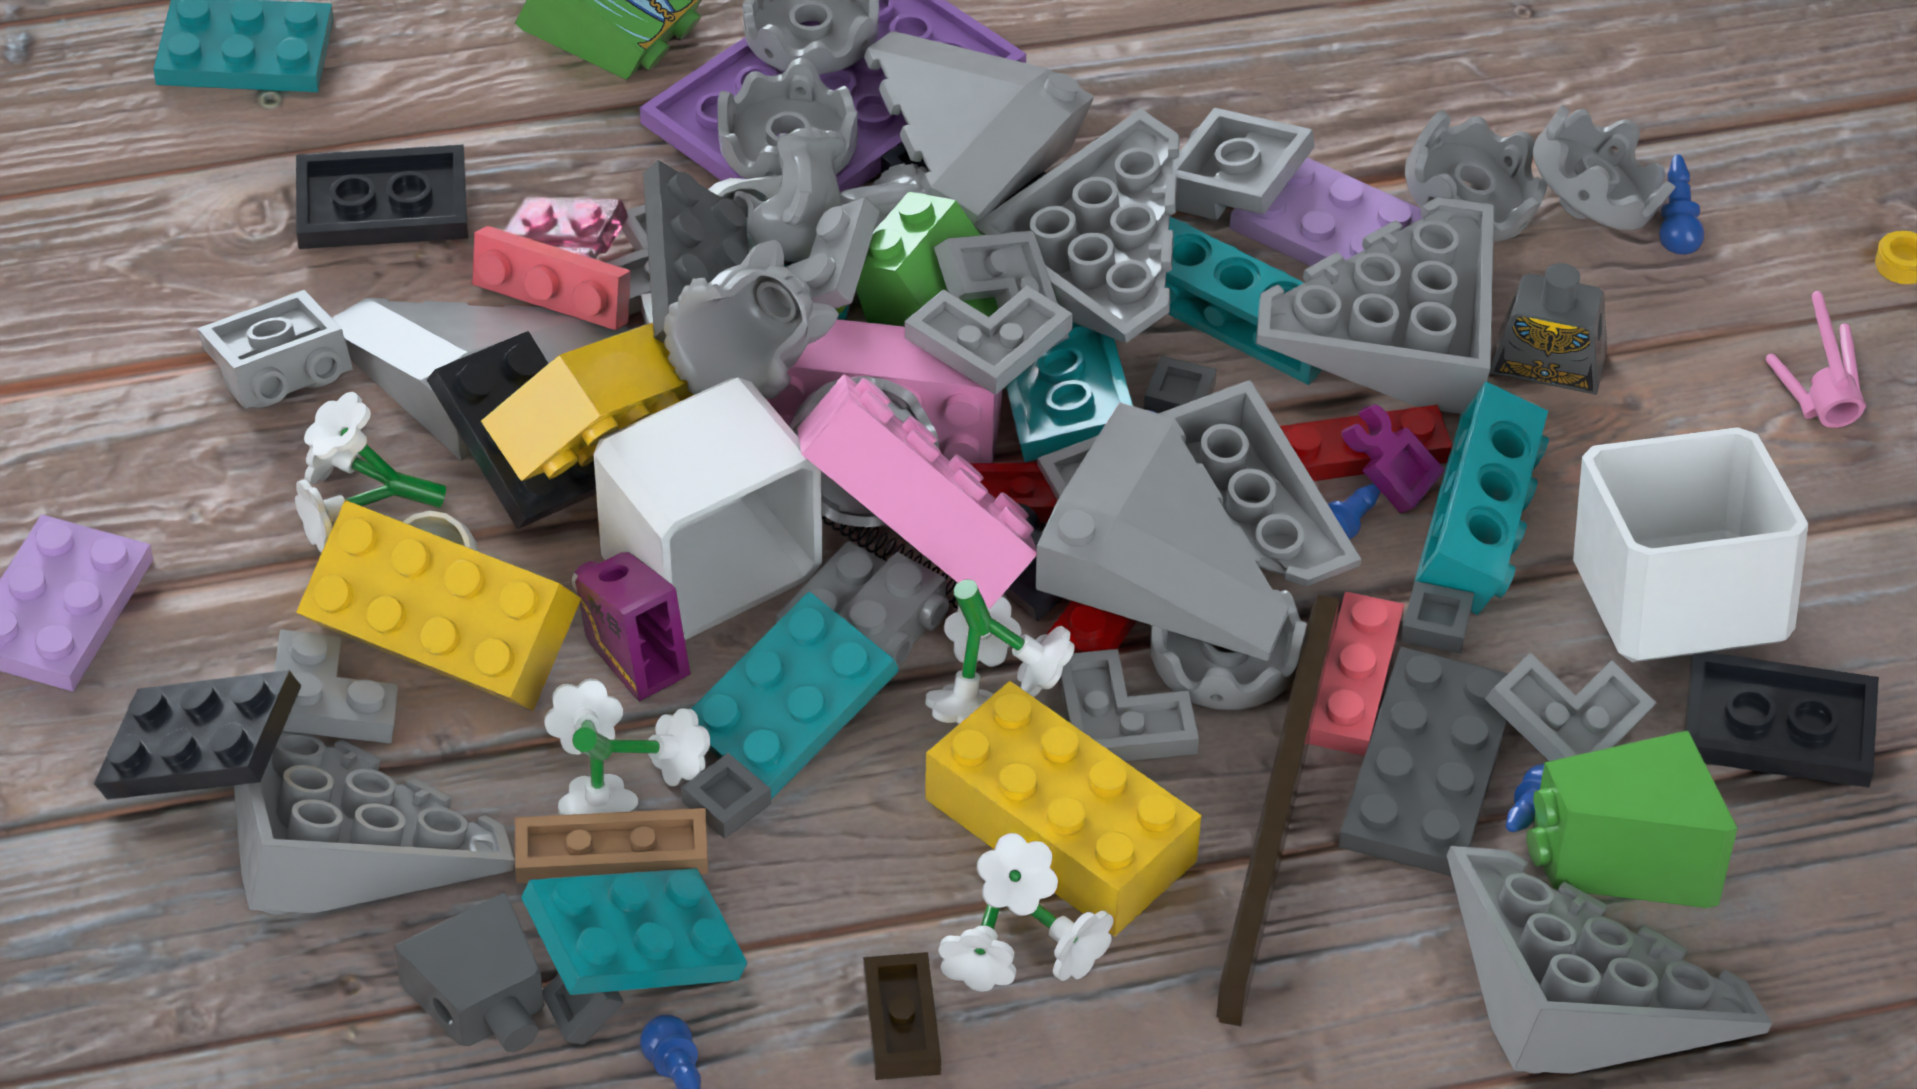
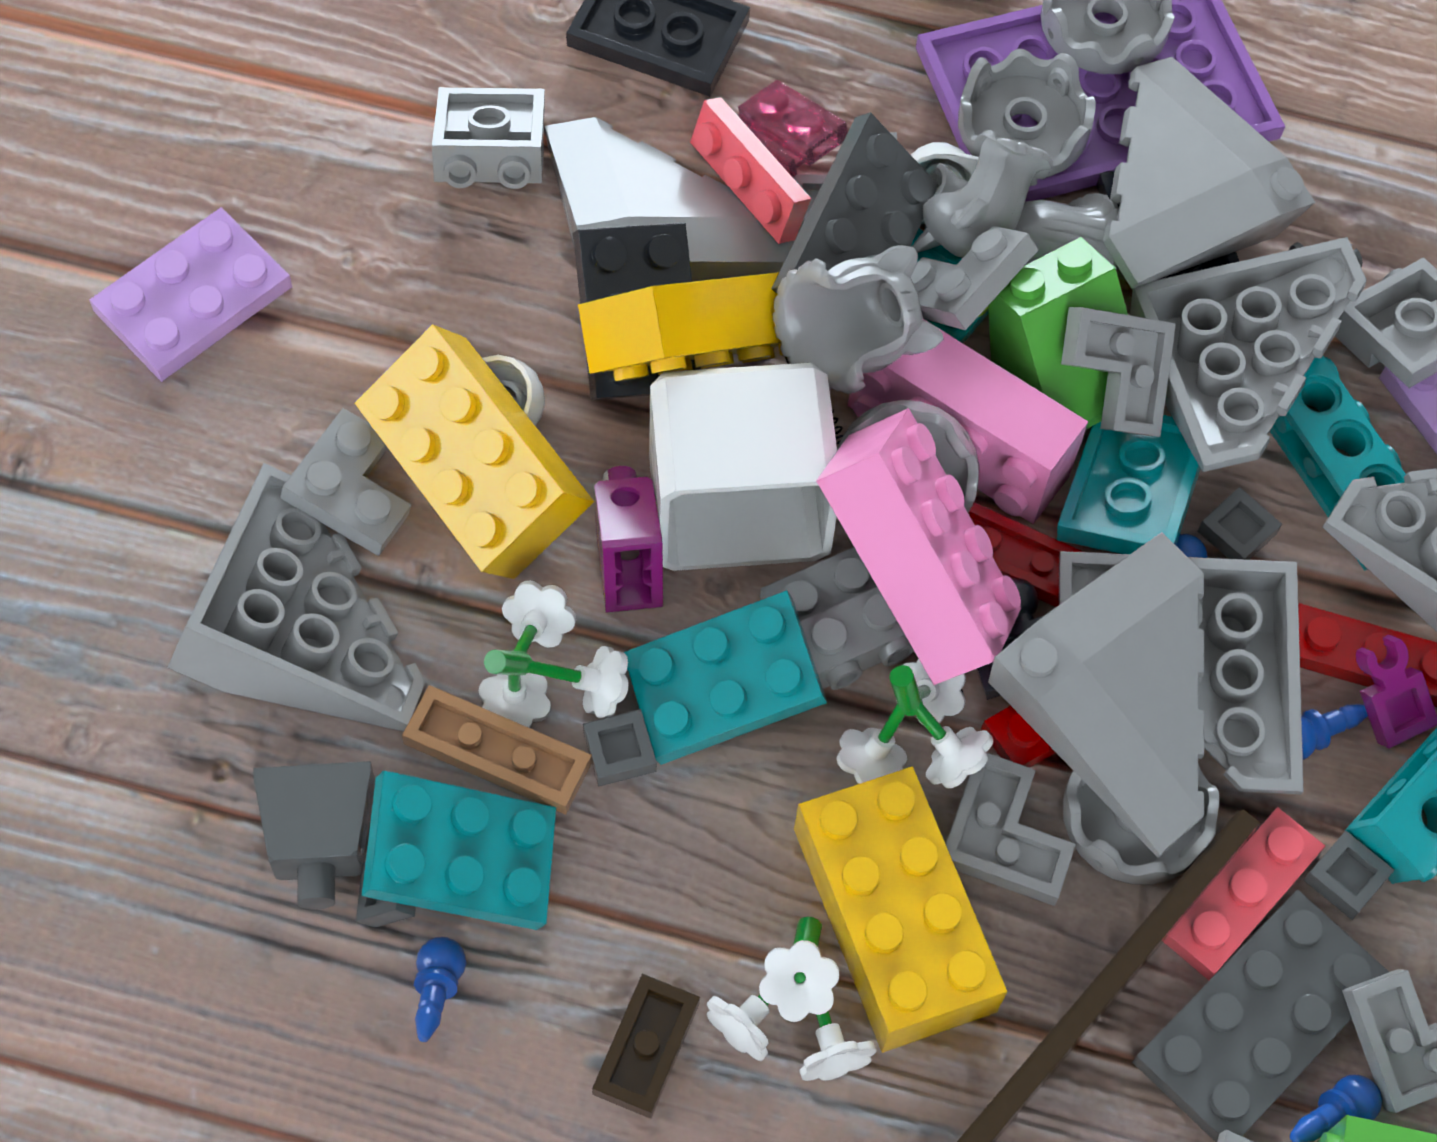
camera: 25 degrees right, 15 degrees up
(198, 735) = (216, 481): black plate -> none
(338, 442) = (473, 252): white plant -> none
(992, 347) = (1071, 433): light grey plate -> none

